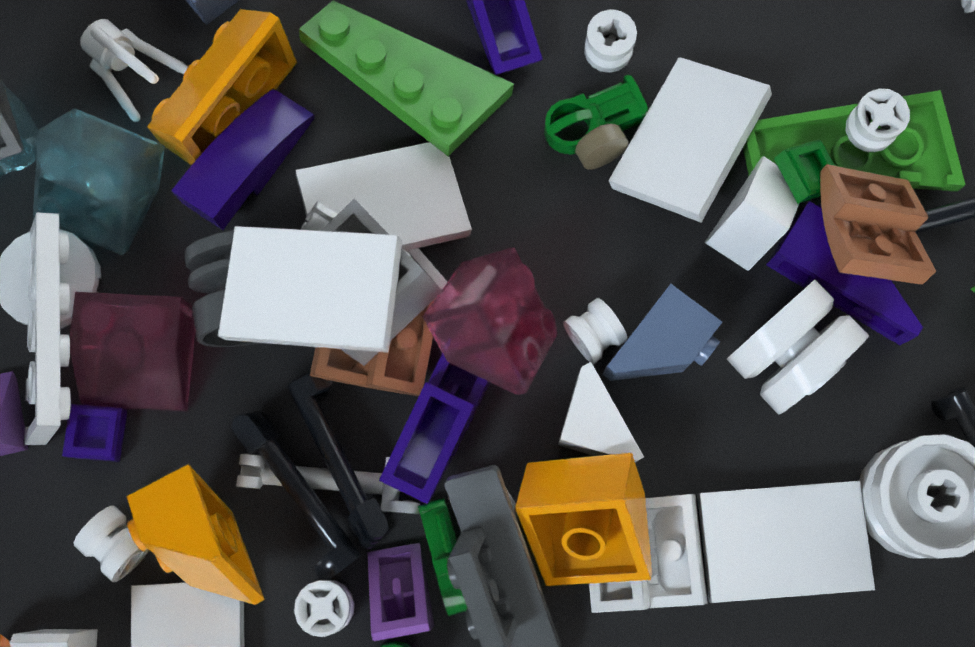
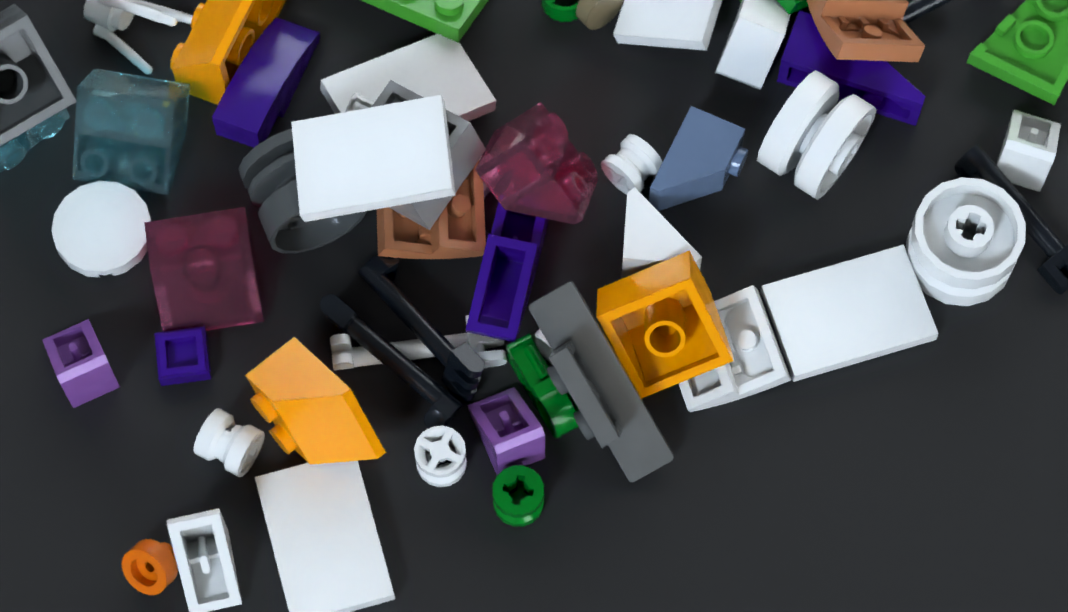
camera: 15 degrees left, 10 degrees down
(51, 349) = (124, 267): white wing -> none

